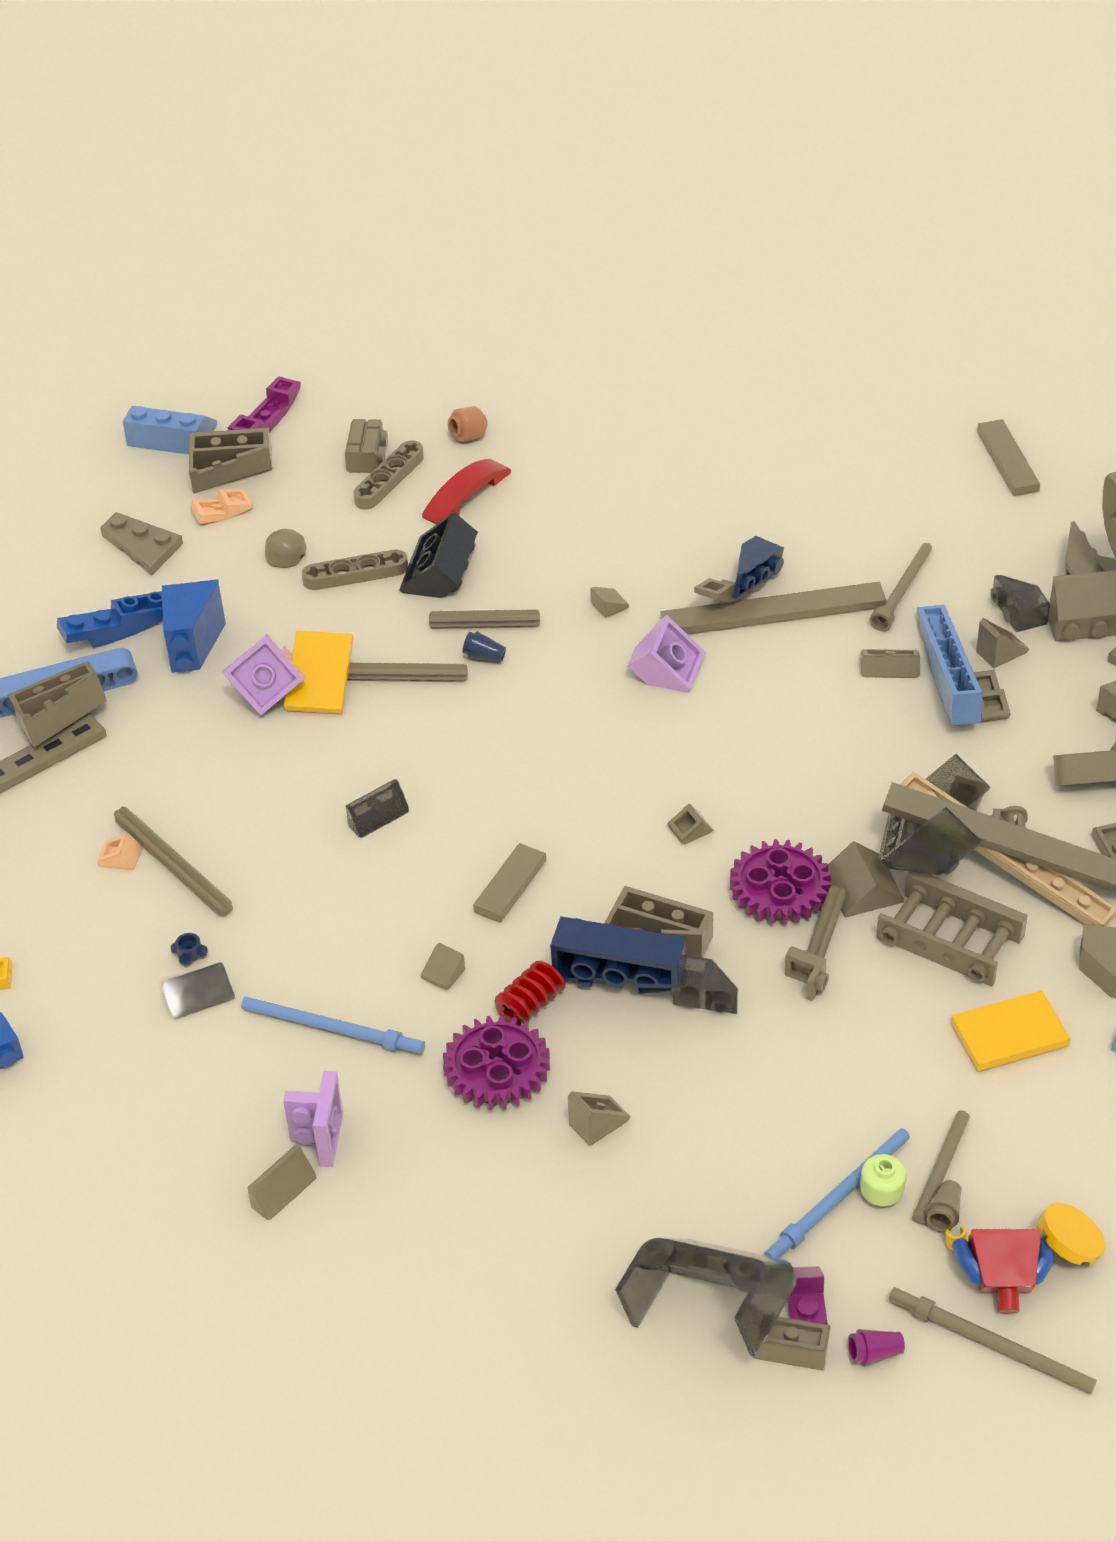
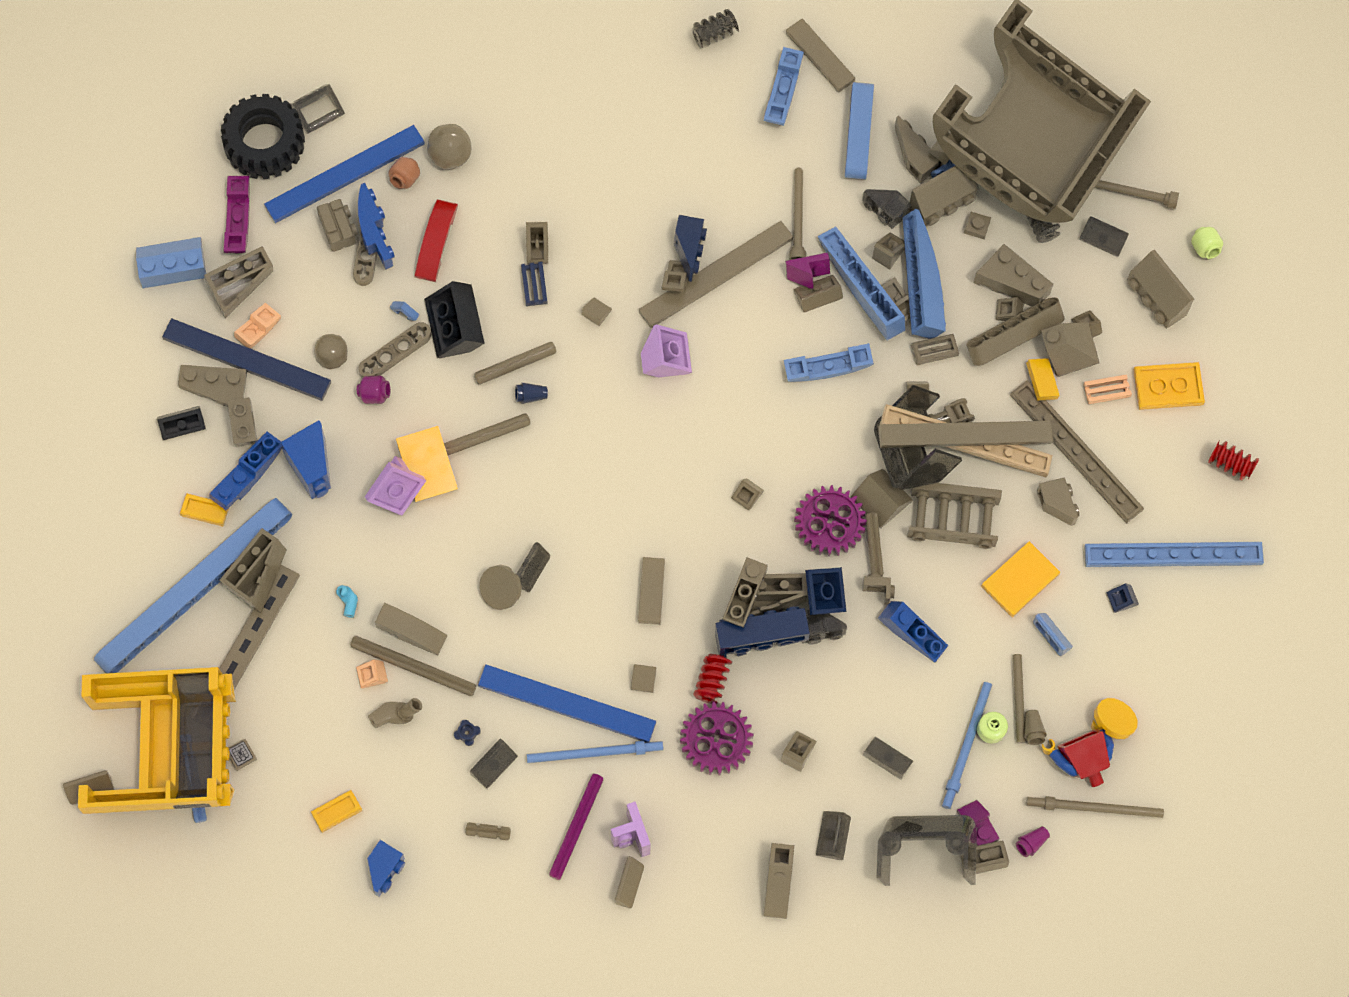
camera: 30 degrees left, 25 degrees up
(47, 643) = (203, 510): none -> yellow tile
(80, 561) = (181, 423): none -> black slope
(116, 896) = (395, 712): none -> dark tan arm
(141, 568) = (242, 422): none -> dark tan brick
(143, 1061) = (488, 831): none -> dark tan axle
(145, 773) = (349, 598): none -> medium azure arm
(192, 819) = (410, 629): none -> dark tan slope
(193, 531) = (246, 358): none -> dark blue tile
(255, 1097) = (576, 826): none -> magenta axle
(306, 591) = (373, 389): none -> magenta head
(324, 811) = (500, 587): none -> dark tan tile
(333, 963) = (567, 703): none -> blue tile
(336, 353) = (257, 112): none -> black tyre
(389, 534) = (398, 306): none -> medium blue tile
(399, 449) = (371, 226): none -> blue slope
(402, 411) = (344, 173): none -> blue tile
(411, 342) = (312, 97): none -> clear smoke tile
(483, 1251) = (779, 880): none -> dark tan slope
(530, 414) = (449, 146): none -> dark tan piece
(545, 548) = (532, 267): none -> dark blue tile
(578, 517) = (537, 242): none -> dark tan slope
(592, 1235) = (833, 835): none -> clear smoke slope
(621, 893) = (745, 592): none -> dark tan slope
(716, 1169) = (887, 758): none -> clear smoke slope
(728, 938) = (825, 591): none -> dark blue slope
(829, 1033) = (912, 630): none -> blue slope
(863, 732) = (829, 365): none -> medium blue slope
(889, 630) = (804, 269): none -> magenta slope
(893, 398) = (713, 27): none -> clear smoke piece
(951, 470) = (784, 86): none -> medium blue slope
(1012, 757) = (935, 357): none -> dark tan tile
(1019, 529) = (859, 130): none -> medium blue beam
(1025, 1106) = (1052, 634): none -> medium blue slope
(1028, 682) = (923, 279): none -> medium blue slope

